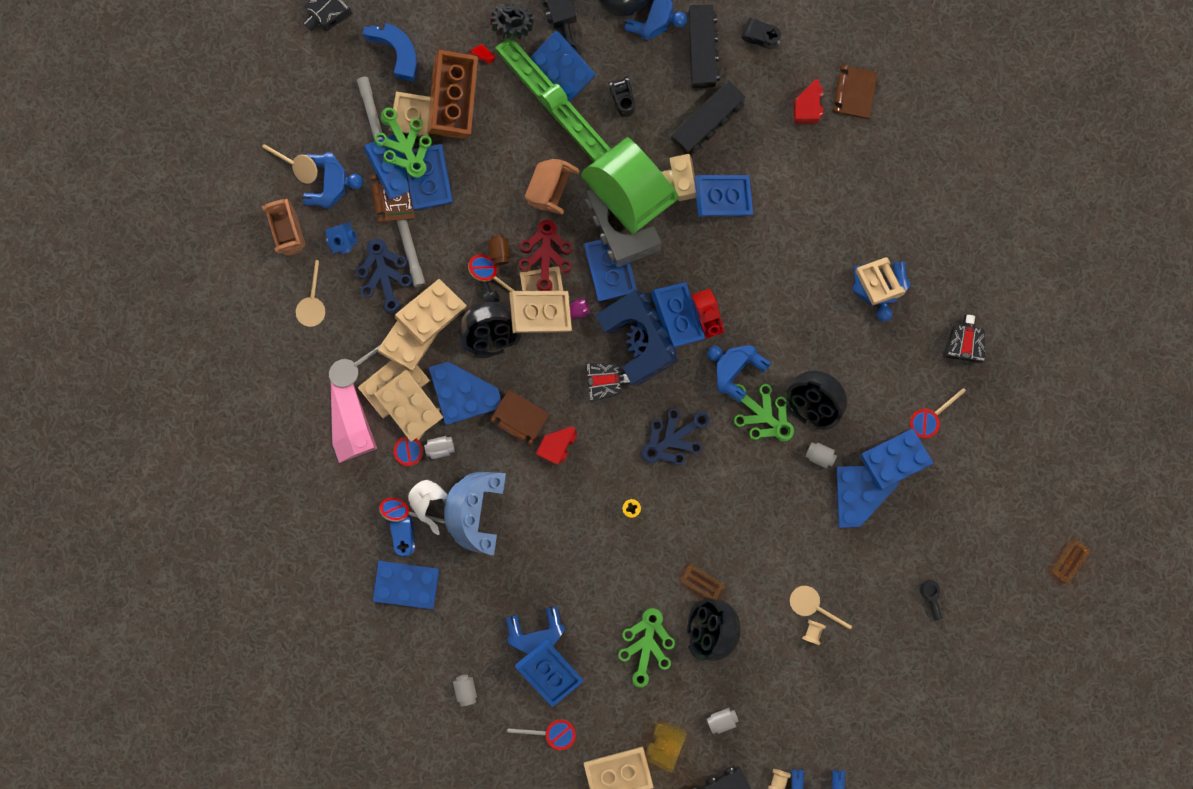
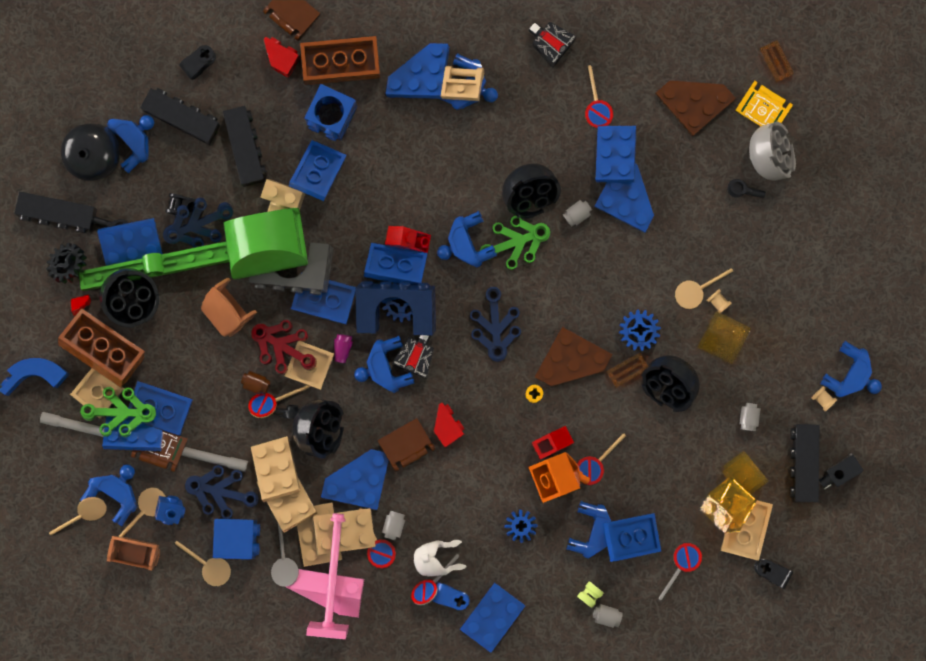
camera: 65 degrees left, 0 degrees up
(312, 440) = (328, 628): none -> bright pink tile
(336, 216) = (147, 504): none -> tan piece
(347, 311) = (235, 539): none -> blue brick
(464, 509) = (459, 532): medium blue cylinder -> none
(480, 666) = (593, 591): none -> yellowish green wheel
(502, 571) = (525, 530): none -> blue gear
(504, 103) = (138, 304): none -> black cylinder
(540, 311) = (329, 376): tan plate -> none
(566, 572) = (557, 476): none -> orange piece
(575, 354) = (380, 369): none -> blue connector
(591, 600) = (593, 467): none -> piece
(596, 550) = (552, 442): none -> red slope
(611, 115) = (195, 224): none -> dark blue plant
(628, 747) = (728, 506): none -> clear yellow slope
(647, 643) = (653, 443): bright green plant -> none
(683, 525) = (571, 359): none -> reddish brown plate
(753, 584) = (639, 322): none -> blue gear
(783, 655) = (724, 337): none -> clear yellow slope
(795, 164) = (324, 97): none -> blue brick
(836, 159) = (340, 60): none -> dark orange brick
(866, 240) = (420, 75): none -> blue plate
(981, 598) = (766, 152): none -> light grey cylinder
(987, 506) = (695, 102): none -> reddish brown plate
(1019, 573) = (763, 106): none -> yellow piece

